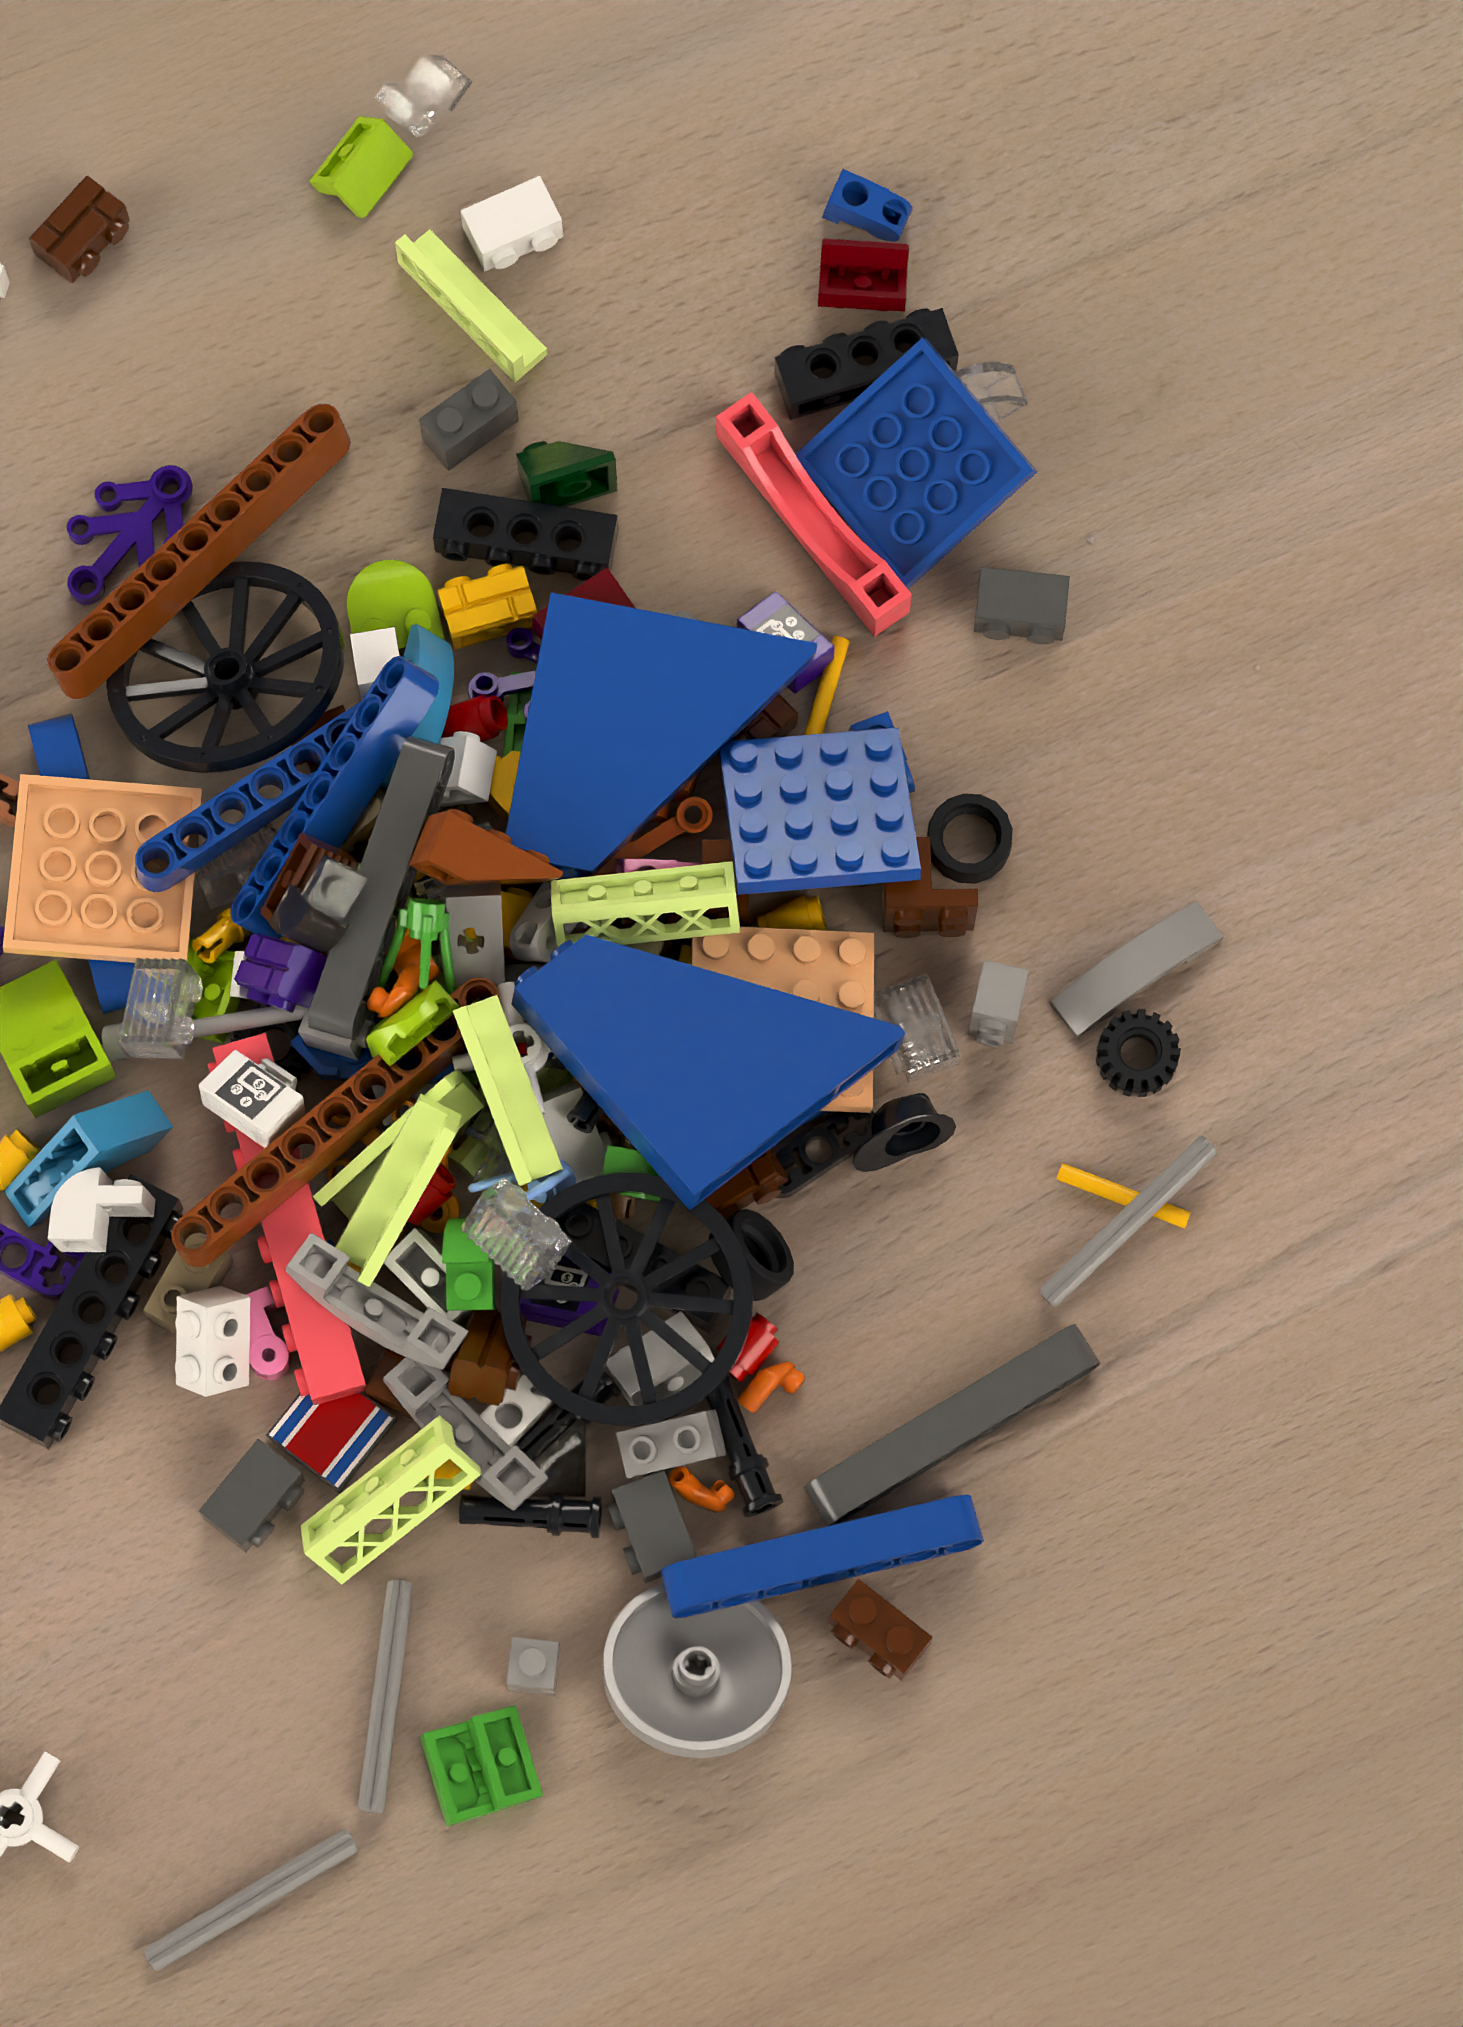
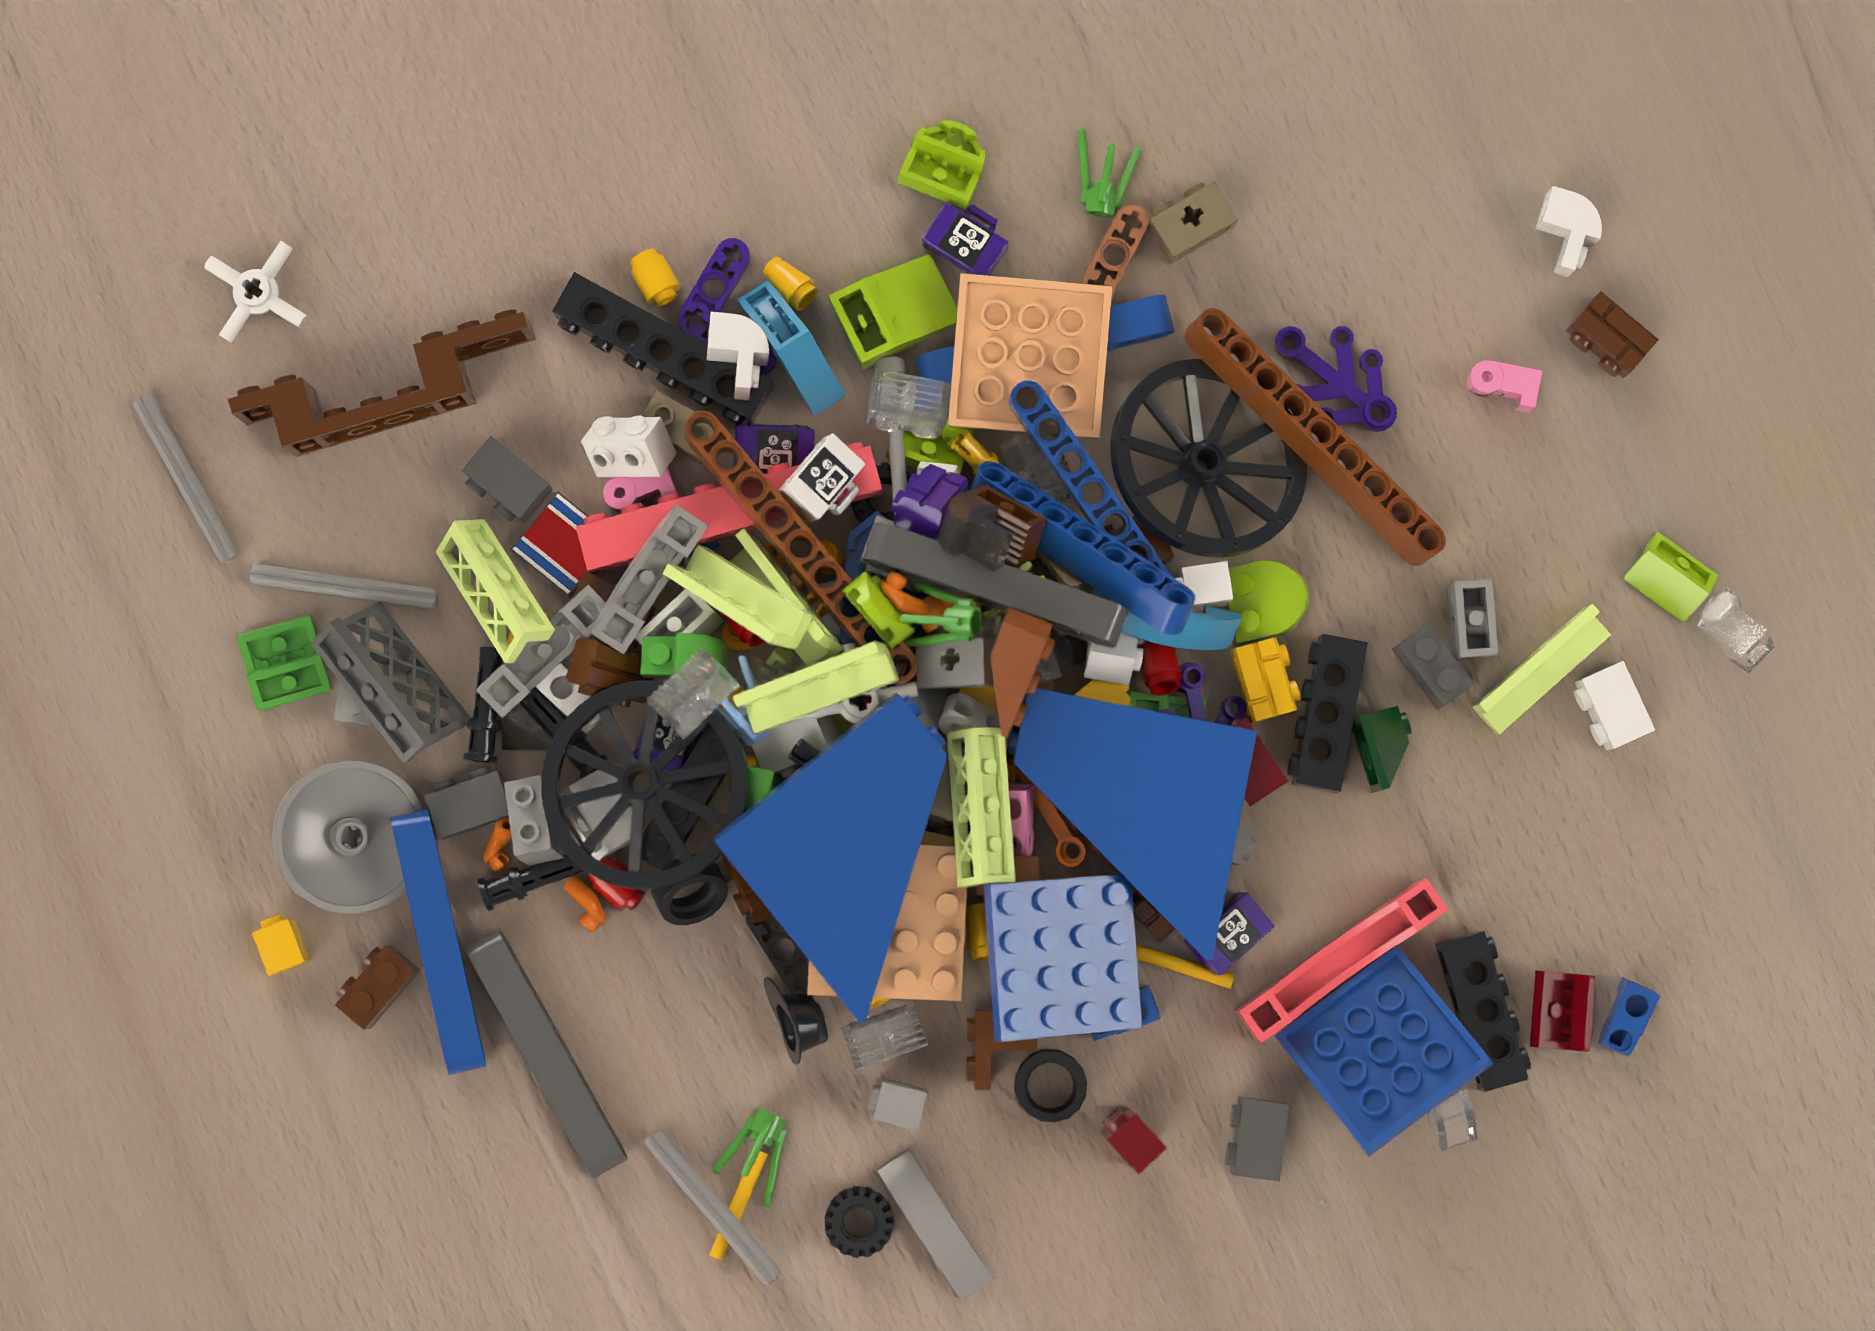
camera: 85 degrees right, 10 degrees up
(127, 1571) = (443, 370): none -> reddish brown bracket
(134, 342) = (1506, 381): none -> bright pink leg
(207, 1165) = (774, 444): none -> piece
(413, 374) = (1472, 619): none -> light grey brick
(504, 1642) = (377, 692): none -> dark grey fence
(832, 1752) = (280, 945): none -> yellow brick
(1028, 733) = (1132, 1138): none -> dark red arch
(1036, 1160) = (765, 1129): none -> bright green plant

